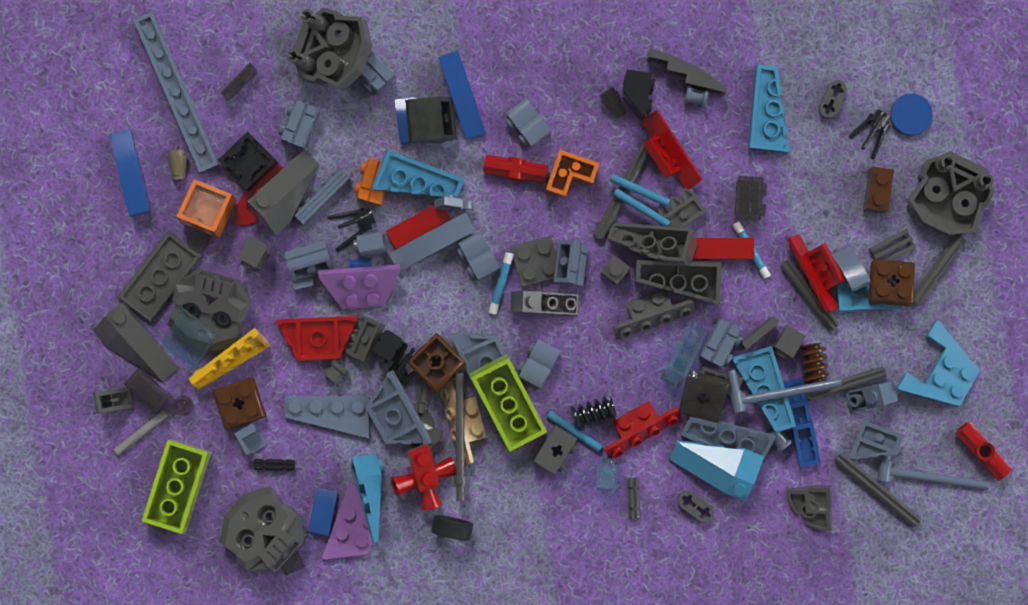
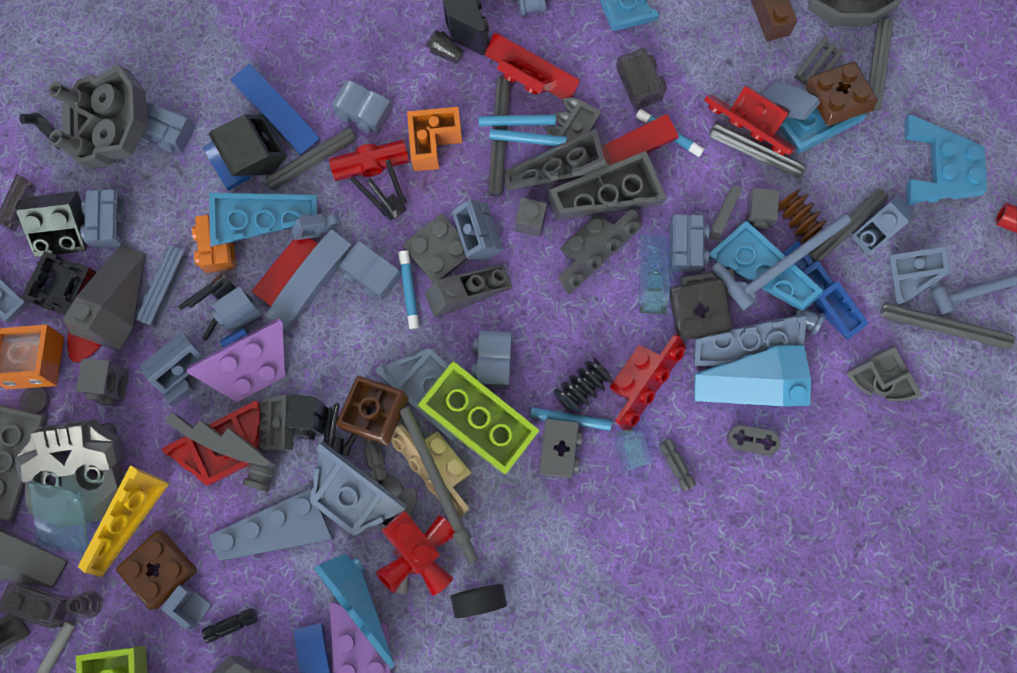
camera: 20 degrees left, 10 degrees down
(262, 111) = (53, 223): none -> pearl dark grey slope
(281, 23) = (39, 121): none -> black bar
(327, 342) = (228, 444): none -> dark grey slope
(472, 146) = (310, 159): none -> dark grey axle
(515, 212) = (389, 206): none -> black plant

